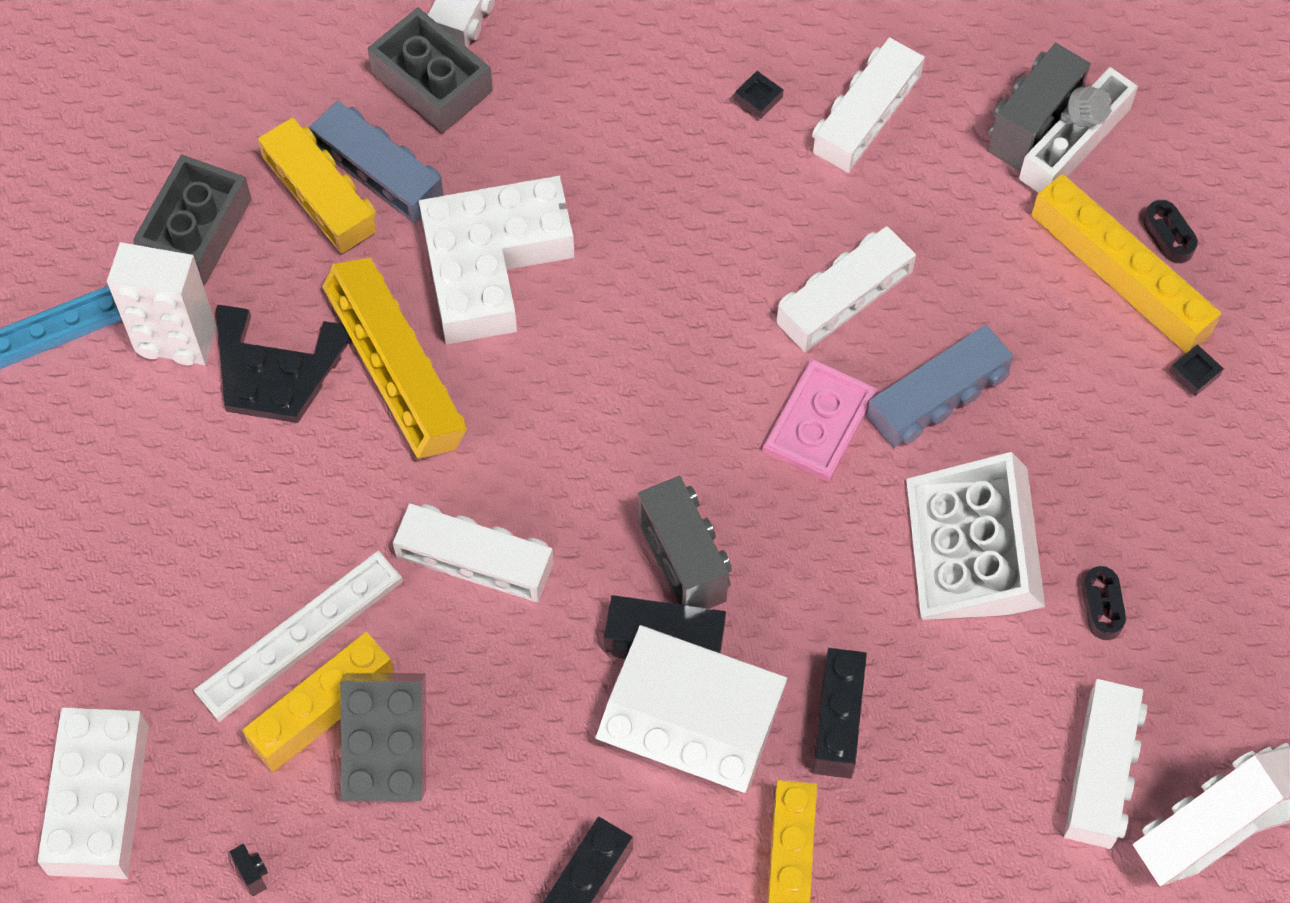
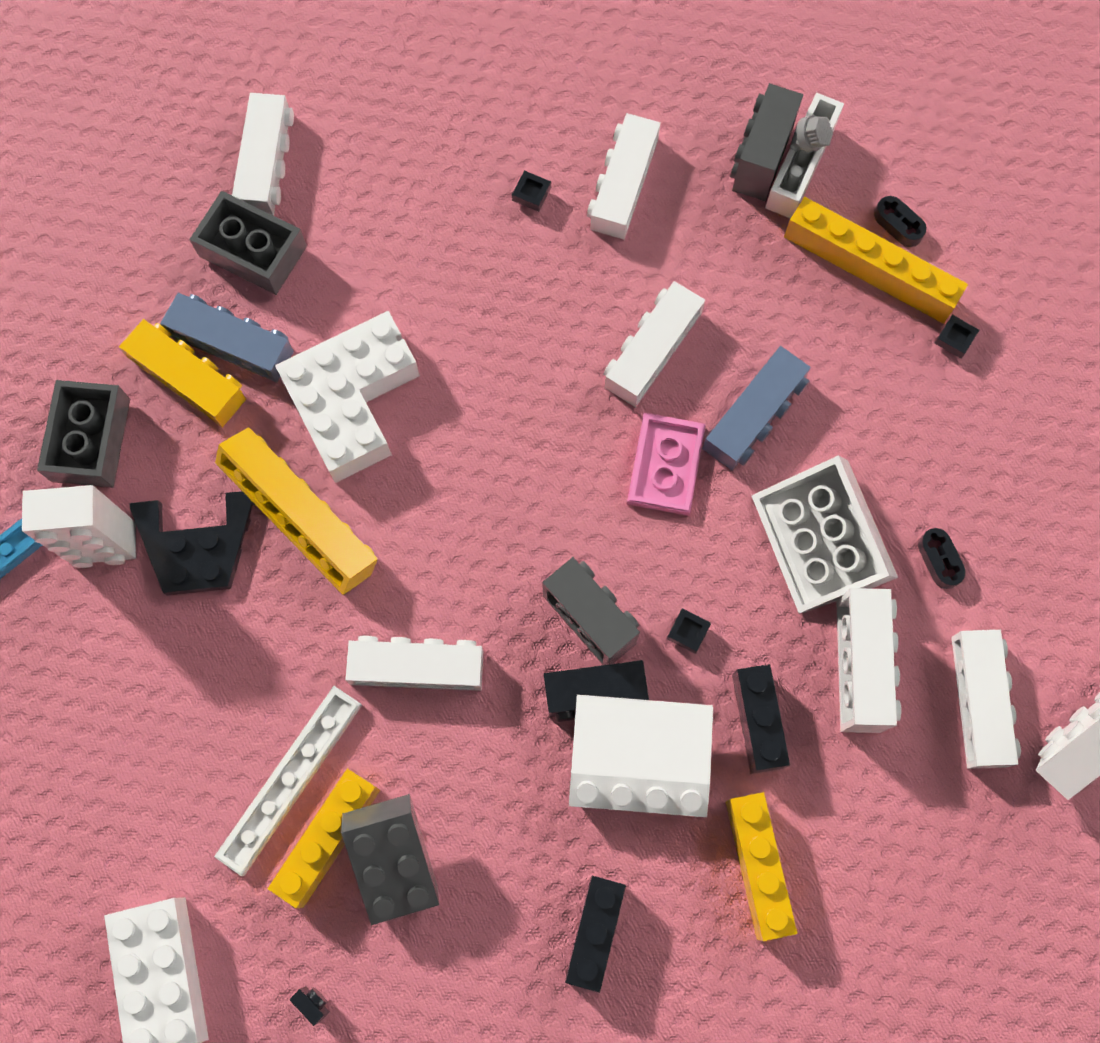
camera: 15 degrees left, 10 degrees up
(789, 600) = (688, 630): none -> black plate
(980, 682) = (867, 661): none -> white brick

